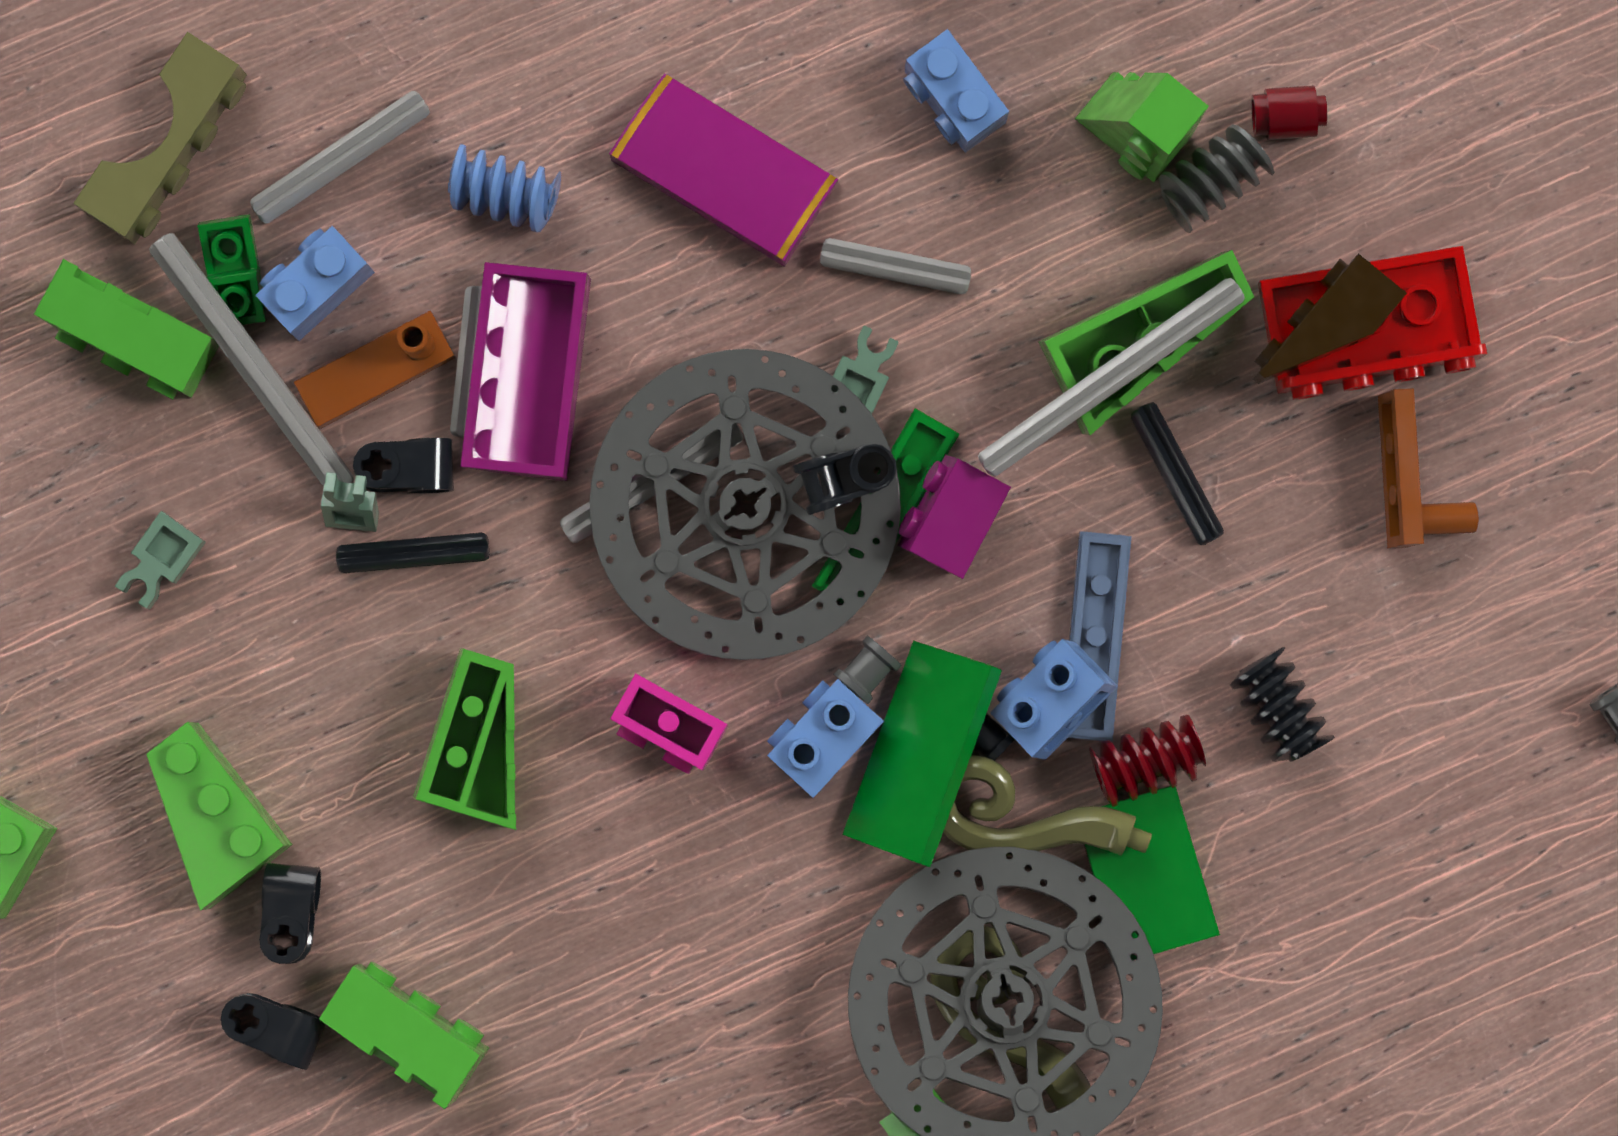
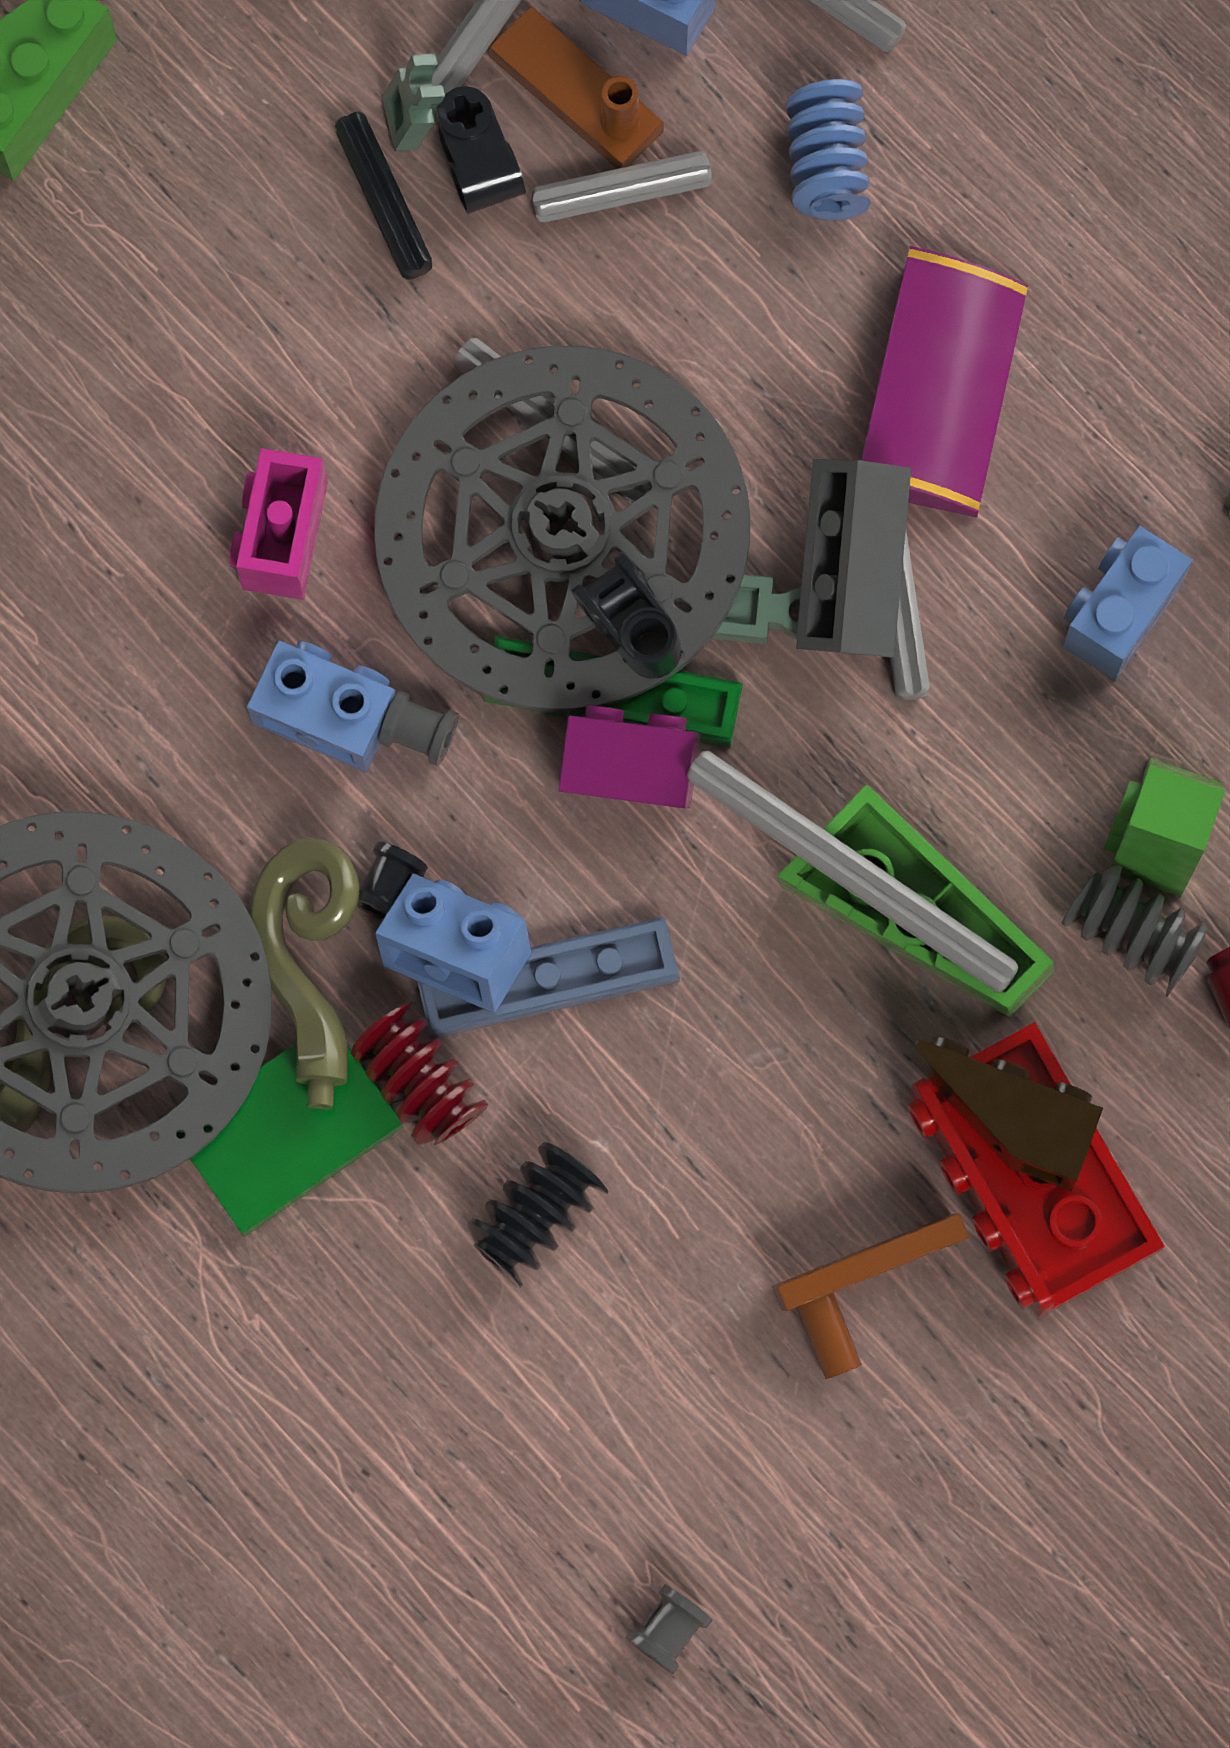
camera: 70 degrees right, 10 degrees down
(473, 743) = (187, 321): bright green wedge -> none
(526, 371) = (631, 245): magenta slope -> none
(856, 287) = (853, 557): none -> dark grey brick
(922, 753) = (340, 816): green tile -> none
(1177, 473) = (772, 1007): black axle -> none

